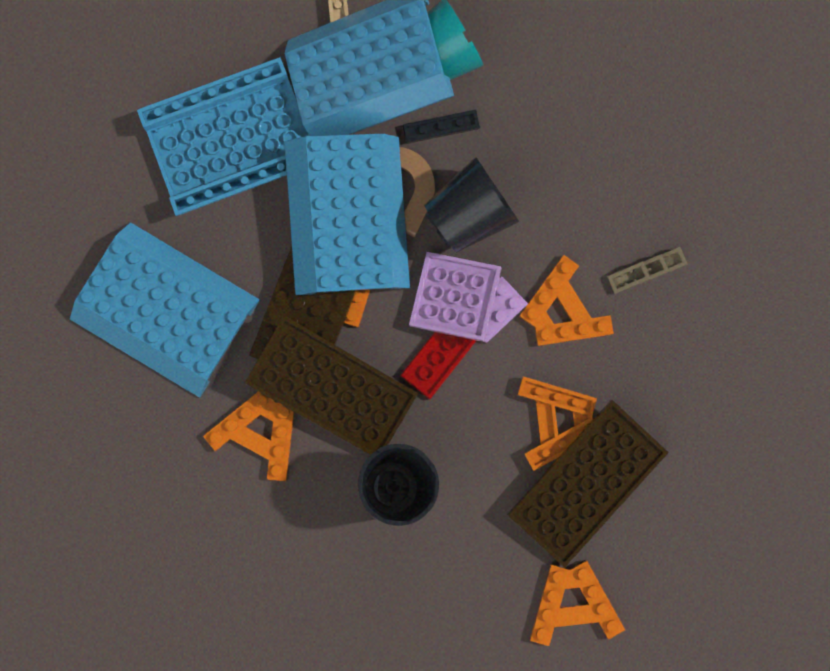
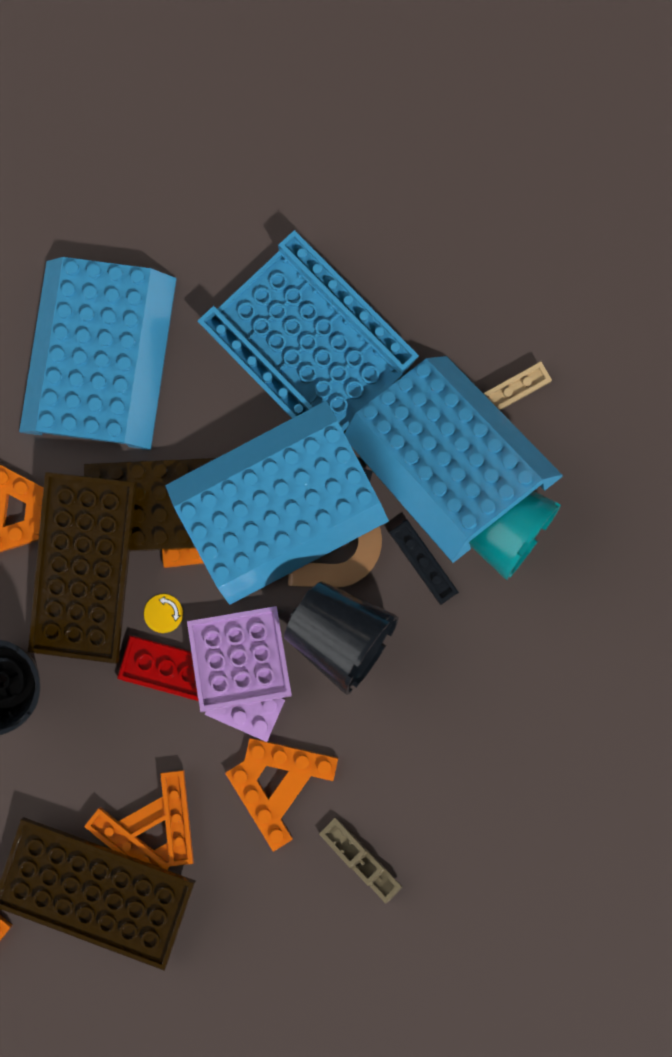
camera: 70 degrees right, 0 degrees up
(394, 343) = (163, 613): none -> yellow sticker

